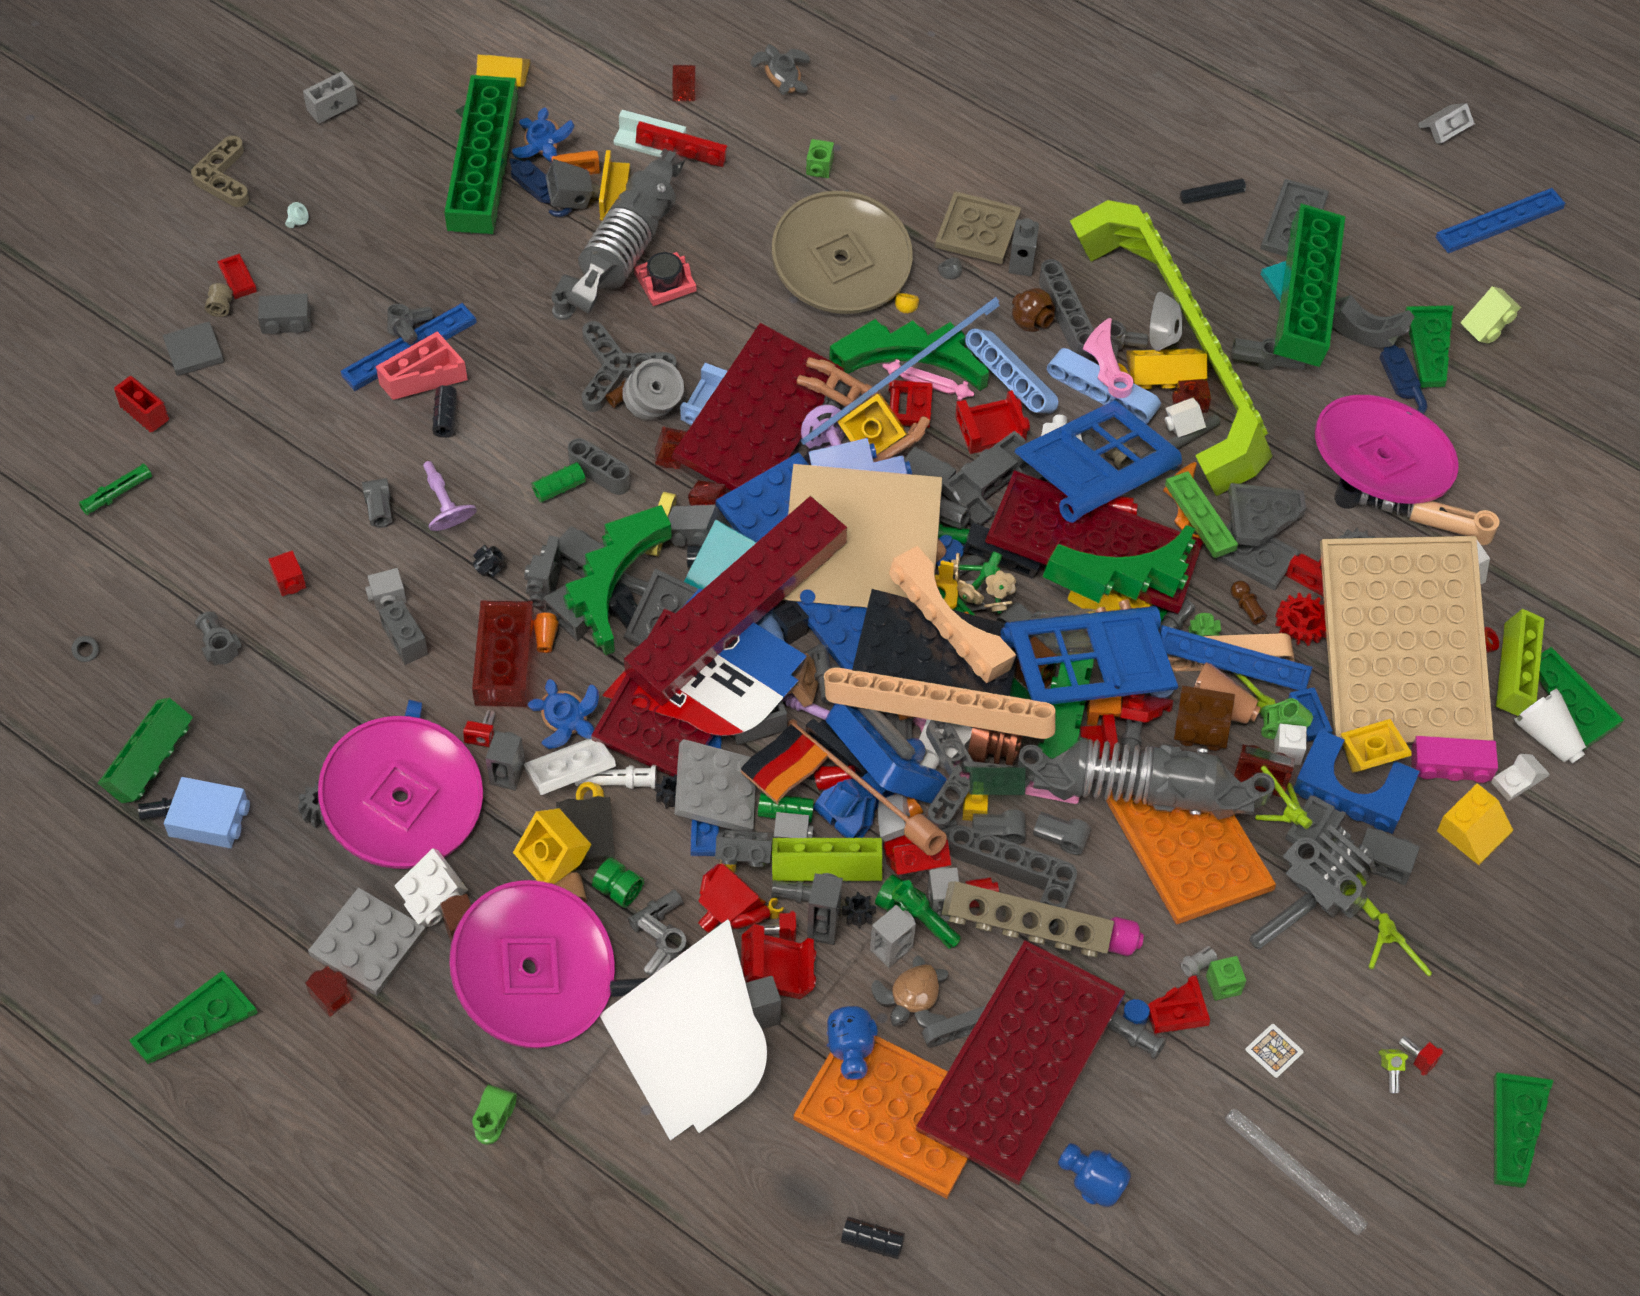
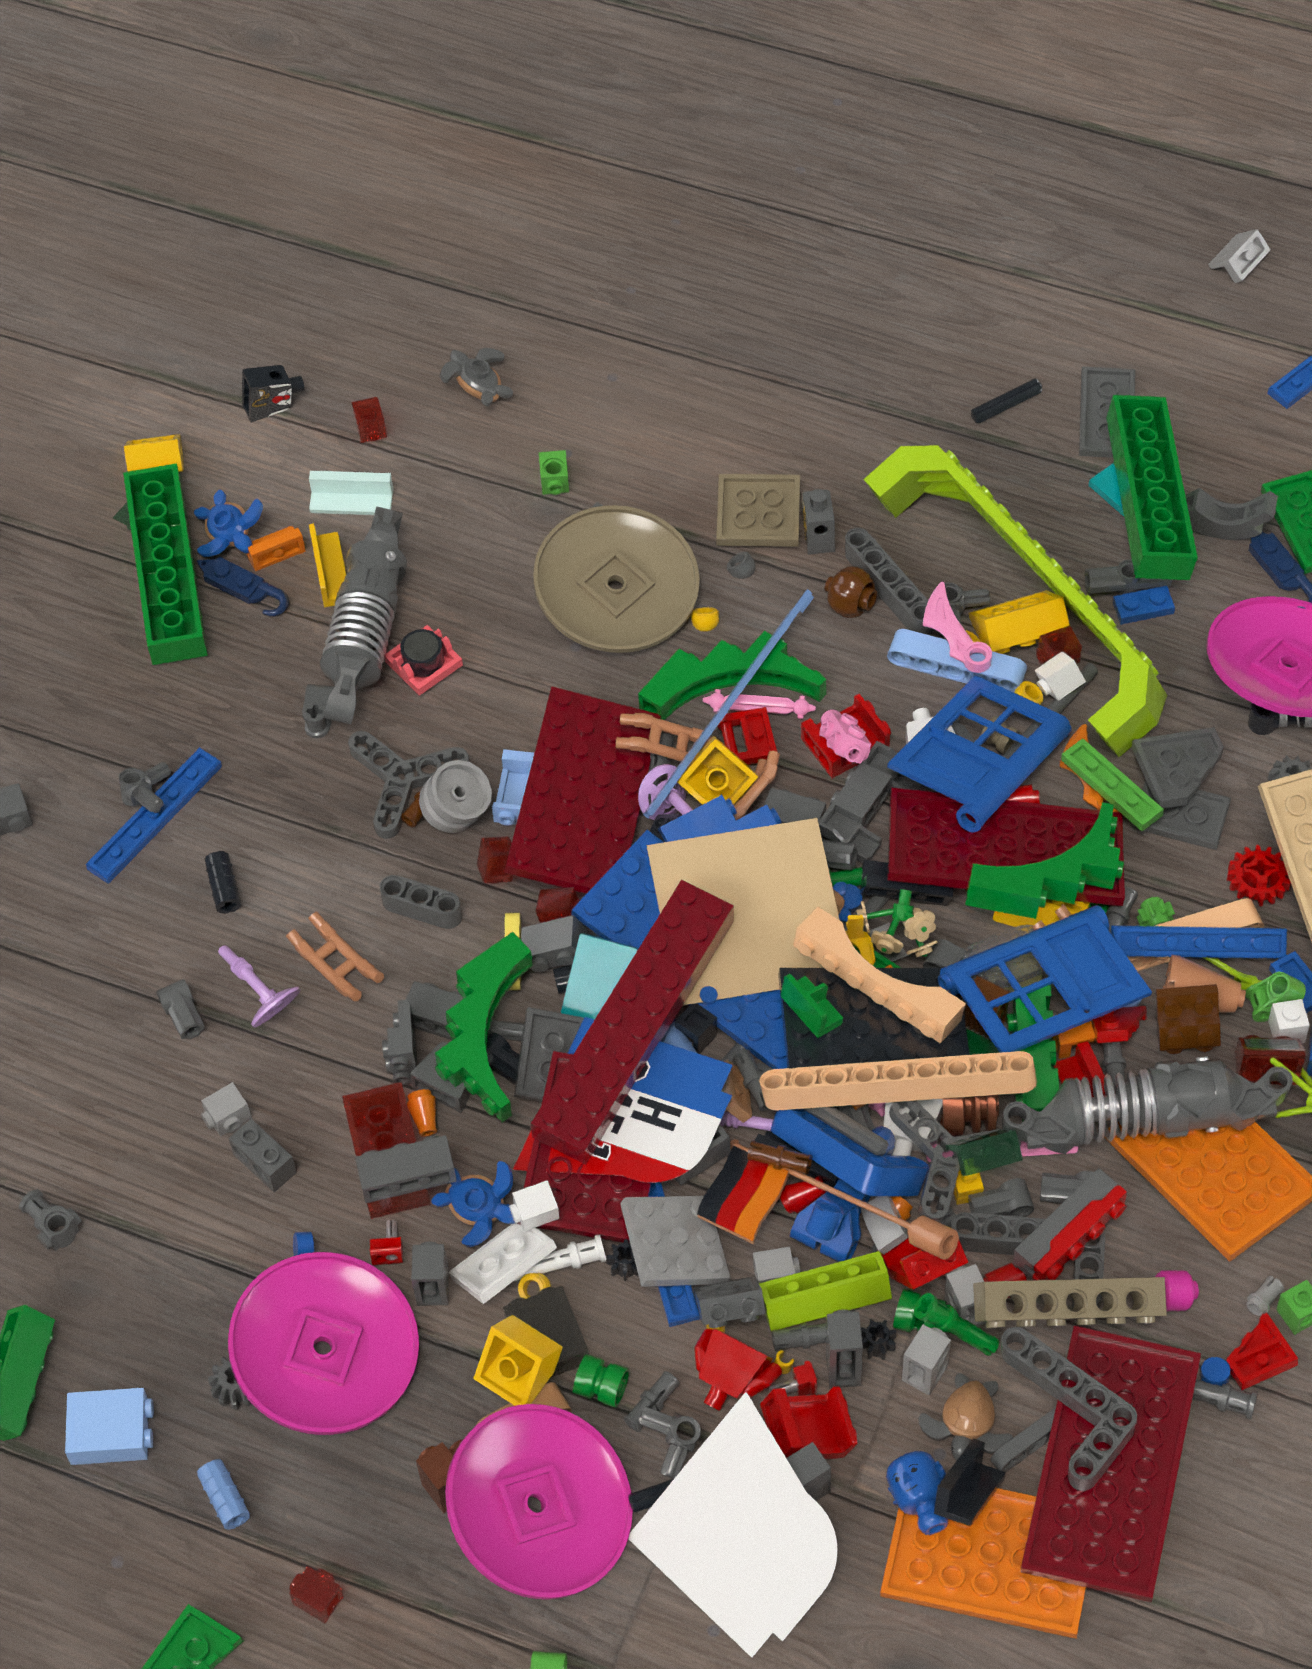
camera: 10 degrees left, 0 degrees up
(154, 809) = (47, 1438): black pin -> none
(281, 891) = (223, 1494): none -> medium blue axle
(287, 573) = (106, 1121): red brick -> none
(367, 941) = (339, 1525): light grey plate -> none
(421, 368) = (180, 838): coral wedge -> none
(429, 885) = (392, 1445): white plate -> none
(488, 560) = (332, 1045): black gear -> none
(510, 669) = (405, 1168): none -> dark grey brick
(519, 480) = (334, 942): none -> nougat piece
(558, 482) = (380, 932): green axle -> none
(570, 185) = (279, 576): dark grey torso -> none
(607, 727) = (534, 1206): none -> white brick
(609, 41) = (268, 391): none -> black torso
(681, 144) = (390, 494): red plate -> none
(788, 804) = (765, 1240): green axle -> none
(823, 741) = (779, 1157): none -> reddish brown pin
(886, 623) = (811, 1004): none -> green panel
(892, 1046) = (967, 1486): none -> black panel
(988, 416) = (845, 736): none -> bright pink brick
(1006, 999) = (1076, 1399): none -> dark grey beam
(1021, 373) = (862, 670): light blue beam -> none
(1048, 859) = (1070, 1227): none -> piece
(1097, 1176) = (1231, 1566): blue piece -> none
(1157, 424) = (1030, 691): none -> yellow piece
(1163, 320) = (999, 571): light grey piece -> none
(1241, 591) = (1181, 861): reddish brown pin -> none
(1276, 379) = (1143, 605): none -> blue plate
(1306, 572) = (1249, 821): red panel -> none

